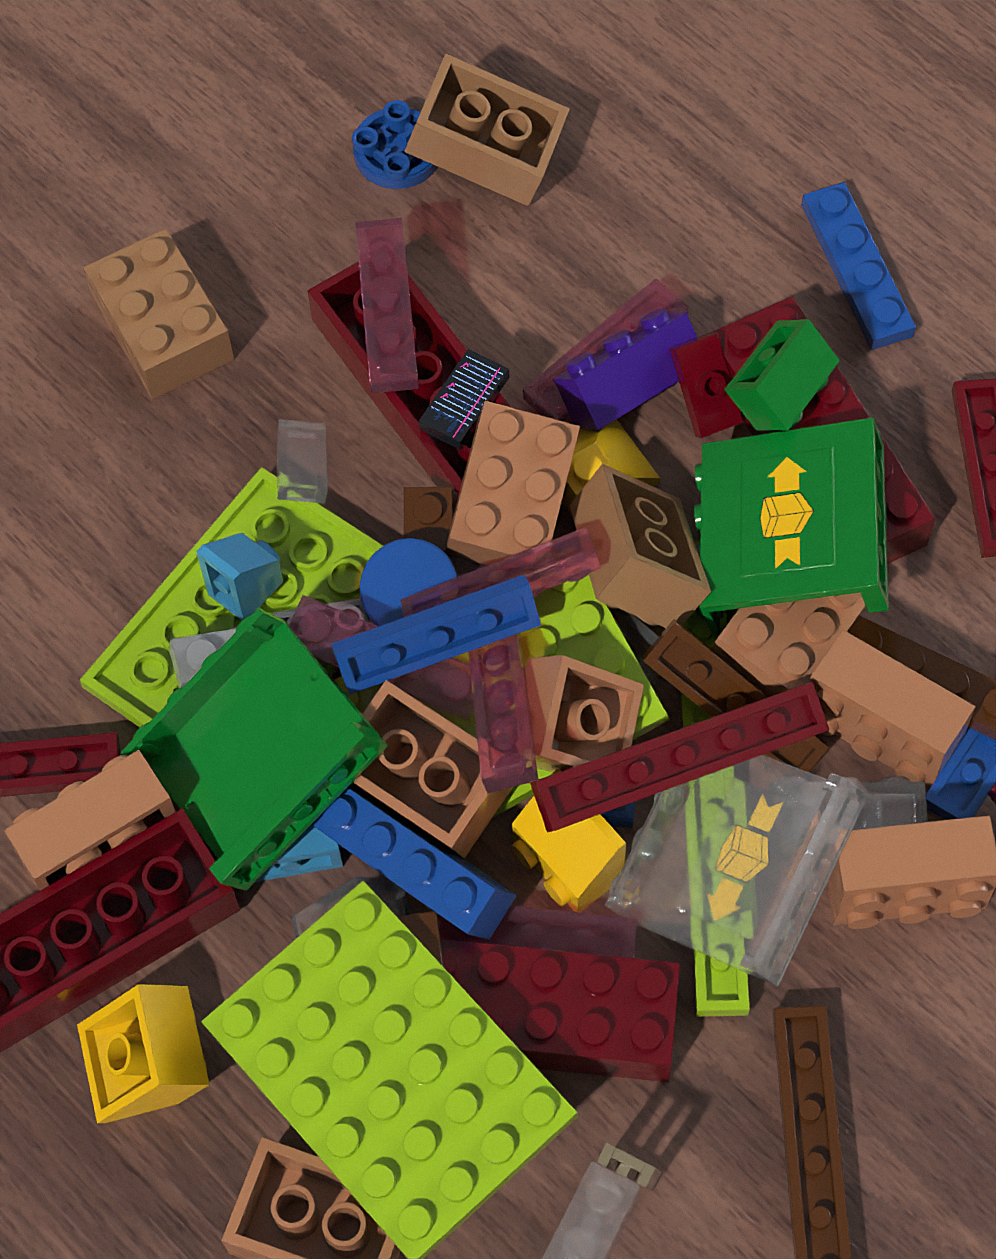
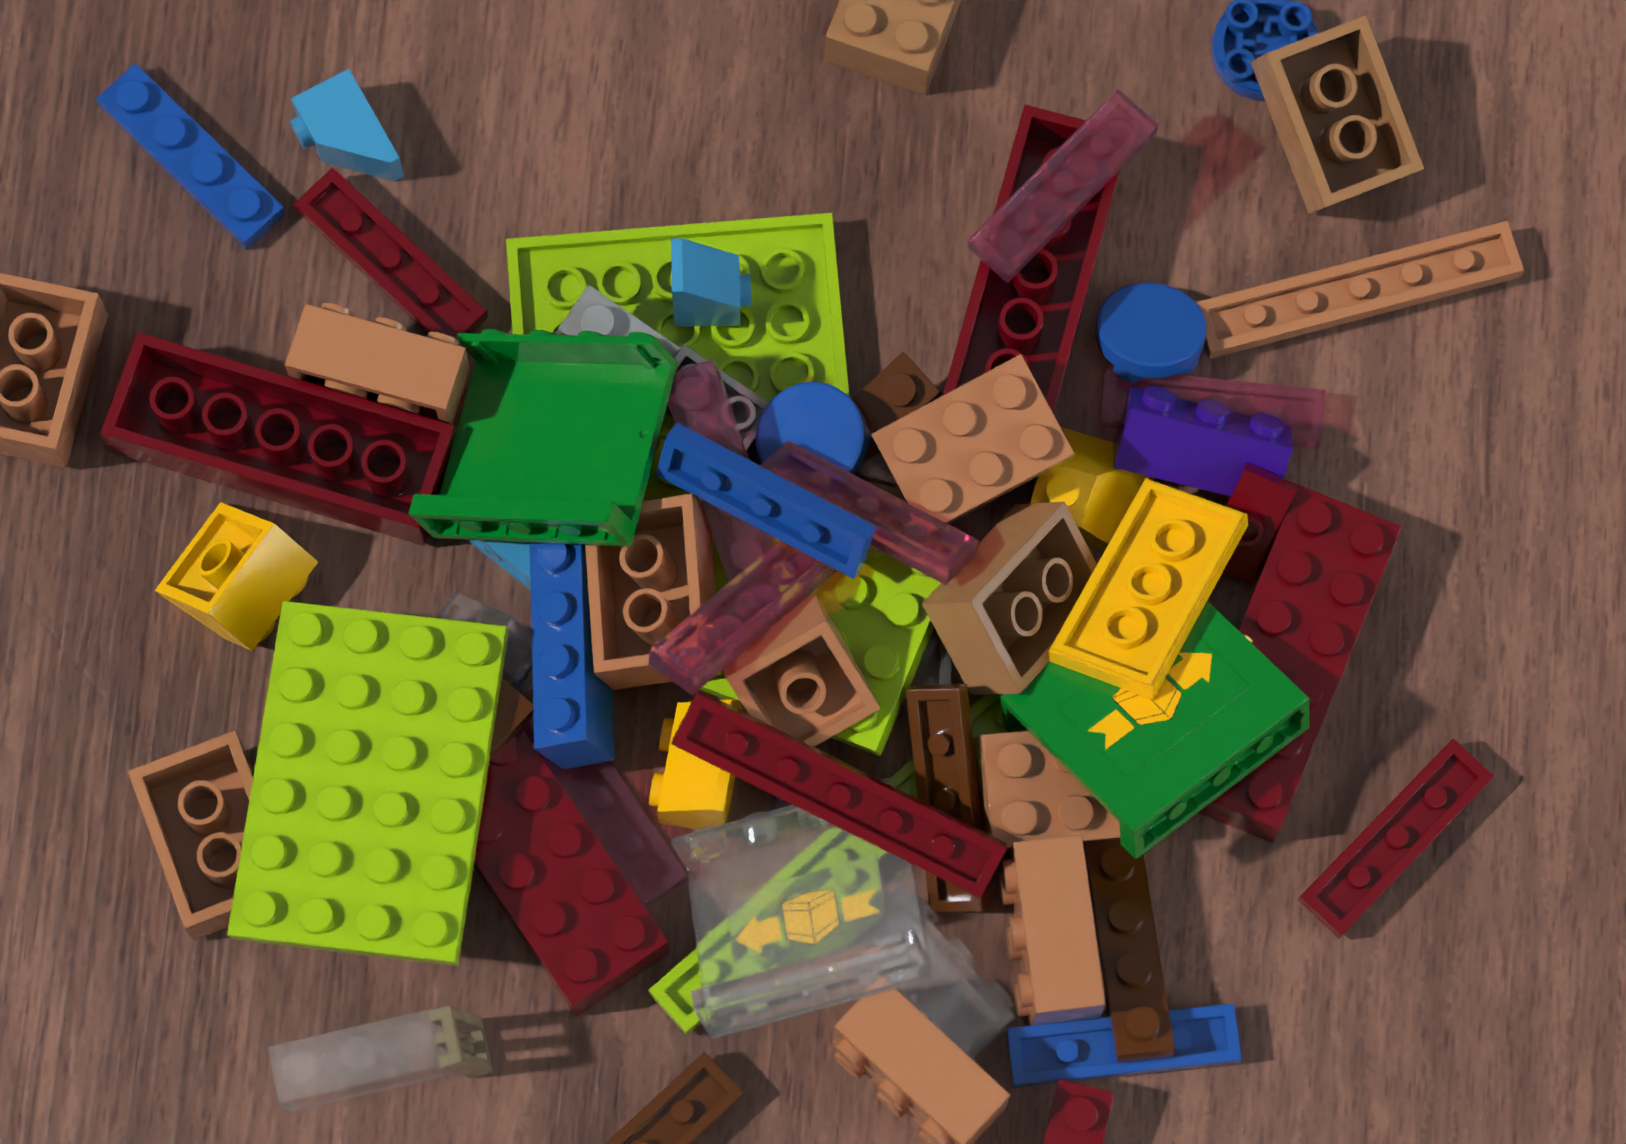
camera: 45 degrees right, 10 degrees up
(301, 461) = (867, 241): clear tile -> none
(460, 400) = (1031, 329): black tile -> none
(526, 342) = (1150, 331): none -> blue tile
(604, 216) = (1360, 289): none -> nougat plate
(705, 465) = (1148, 588): none -> yellow tile
(782, 375) = (1288, 585): green brick -> none
(858, 266) = (1510, 556): blue plate -> none

